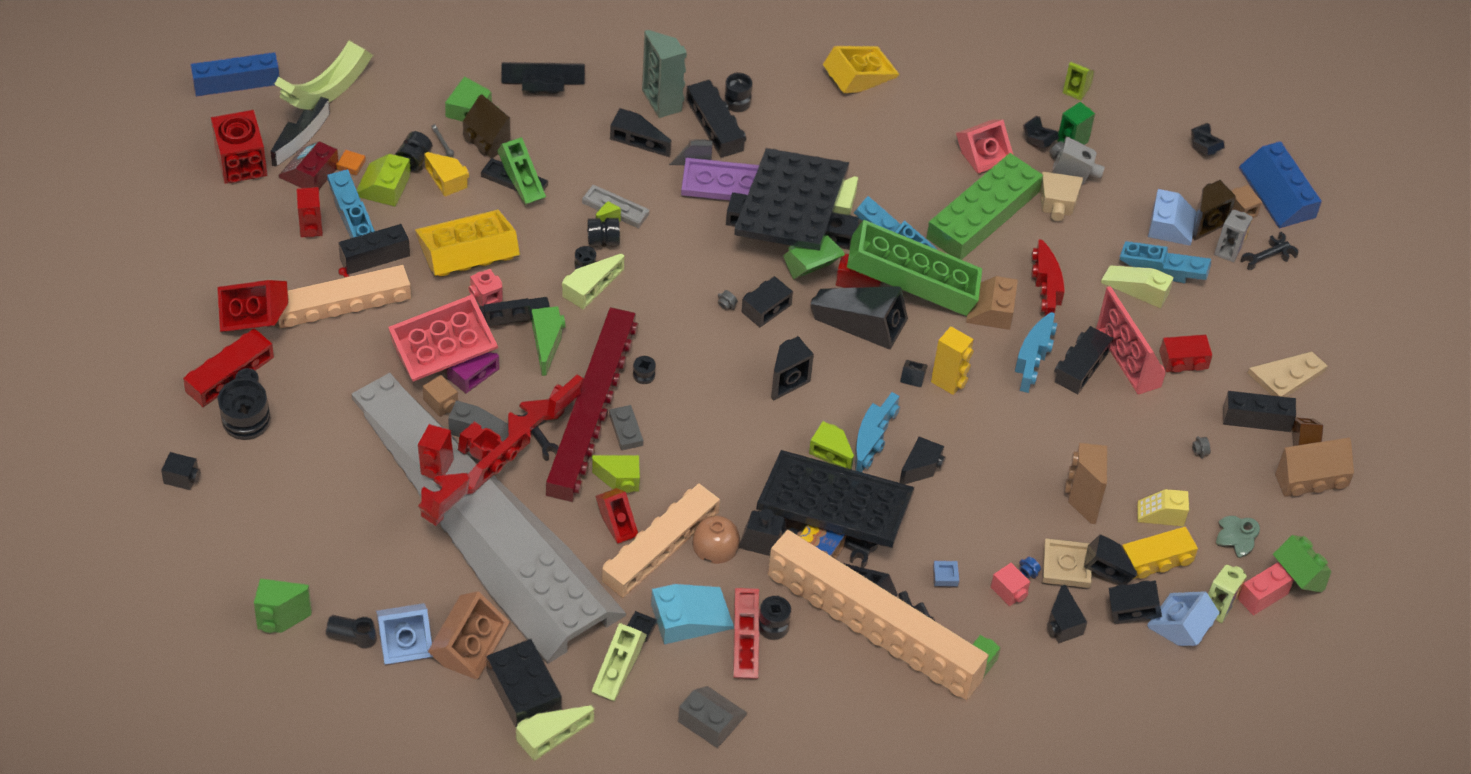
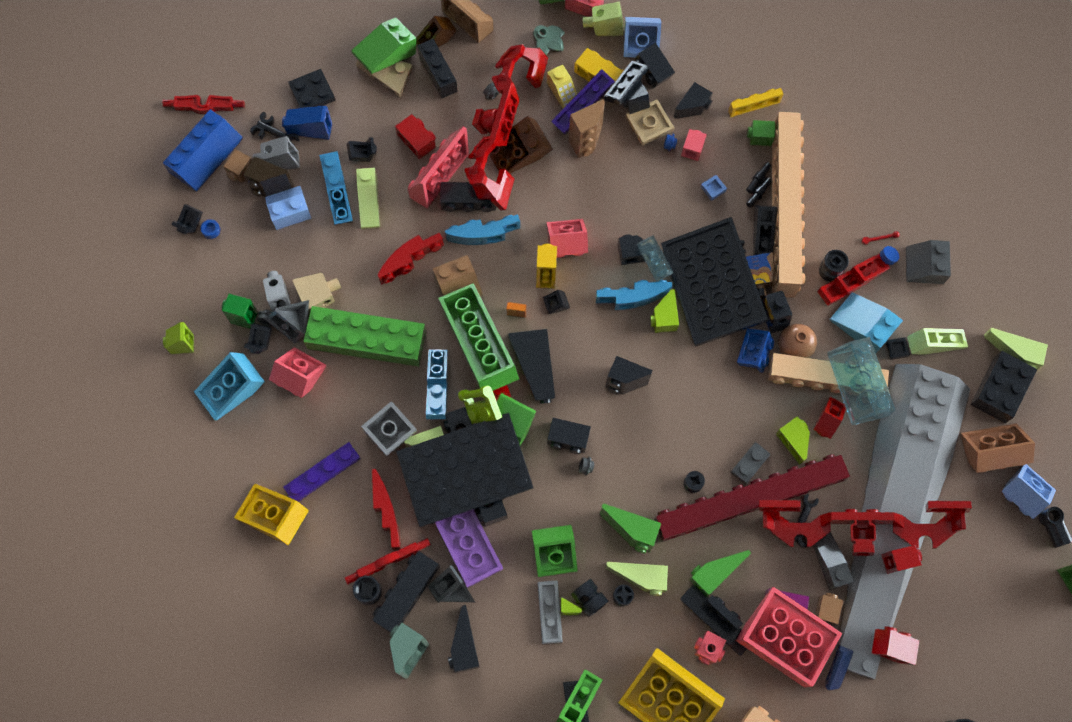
camera: 120 degrees left, 20 degrees up
(364, 416) = (895, 646): none -> brick
(385, 366) = (838, 668): none -> dark blue slope
(629, 546) = (861, 381): none -> clear light blue slope
(642, 287) = (634, 529): none -> bright green slope
(668, 233) = (554, 550): none -> bright green slope
(735, 498) = (756, 349): none -> blue bracket
(748, 684) = (889, 255): none -> blue tile
(754, 119) = (382, 562): none -> red piece
(782, 680) = (866, 240): none -> red hinge
(808, 143) = (383, 504): none -> red slope
(839, 229) = (481, 410): none -> lime plate
(873, 121) = (322, 472): none -> dark purple plate
(876, 173) = (388, 428): none -> light grey slope
(894, 455) = (655, 258): none -> clear light blue slope
(927, 331) = (516, 309): none -> orange tile
(979, 413) = (568, 236): none -> coral slope
(1008, 96) = (229, 385): none -> medium azure slope
(1026, 675) = (755, 102): none -> yellow plate
(1042, 158) = (290, 320): none -> dark grey slope
(1117, 430) = (524, 146): none -> reddish brown slope
(1125, 548) = (625, 83): none -> tile
(1130, 508) = (587, 96): none -> dark purple plate
(1157, 420) = (499, 123): none -> red piece
(1187, 157) = (210, 229): none -> blue tile
(1198, 302) = (361, 150): none -> black bracket
(1257, 275) = (308, 122): none -> blue slope
(1301, 303) = (312, 90): none -> black plate
(1313, 377) = (385, 46): none -> bright green slope
(1335, 221) = (193, 103): none -> red piece

